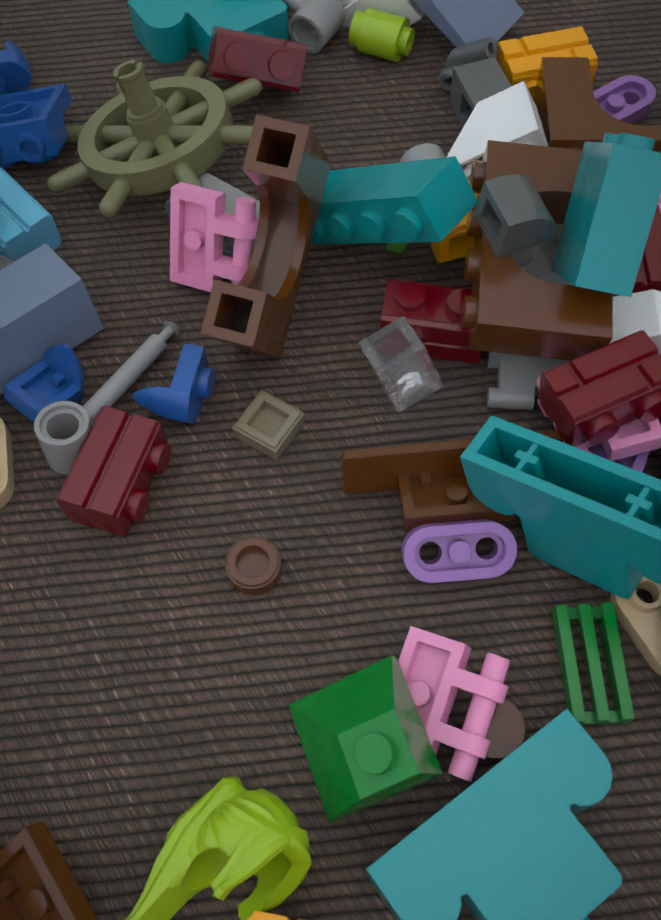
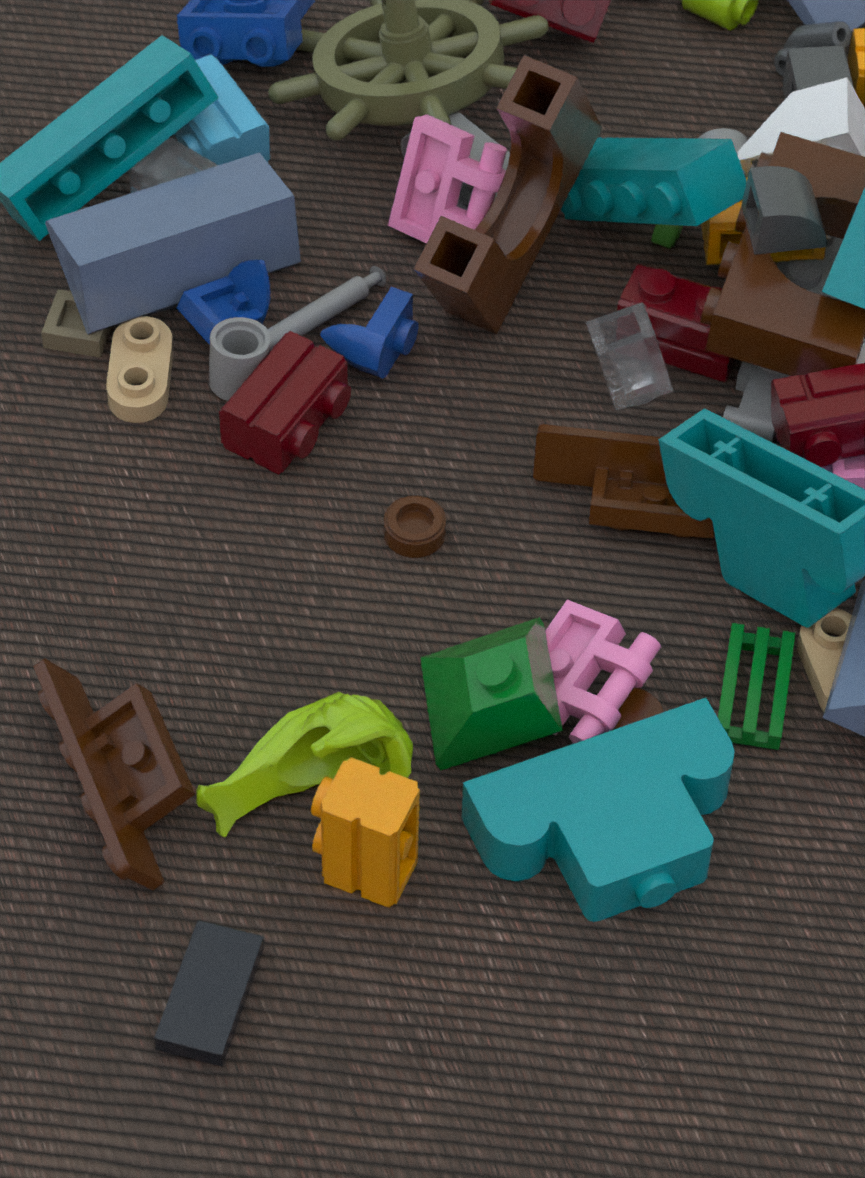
camera: 10 degrees right, 10 degrees down
(268, 425) = (466, 395): dark tan tile -> none
(457, 551) = (642, 545): medium lavender plate -> none

